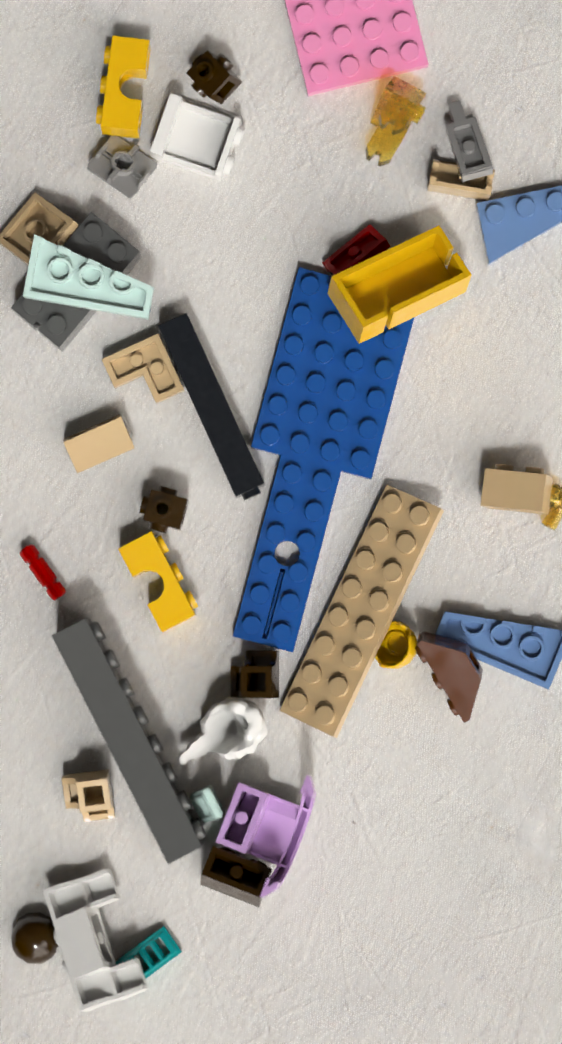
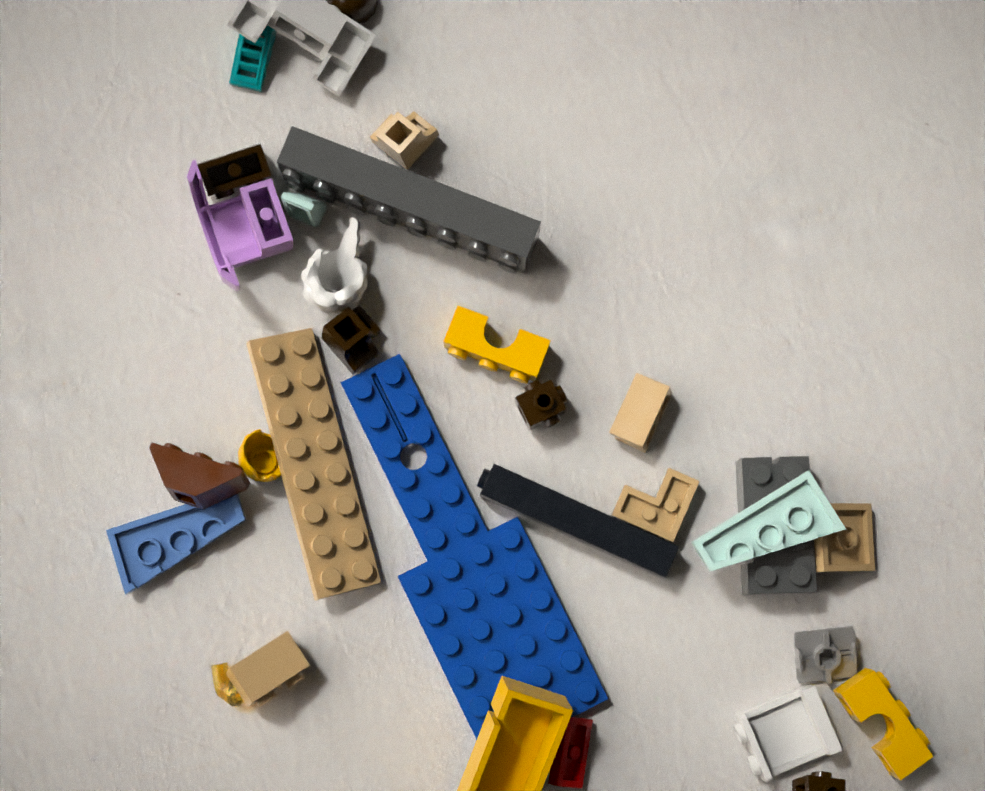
camera: 135 degrees right, 5 degrees down
(42, 572) = (594, 275): red axle -> none

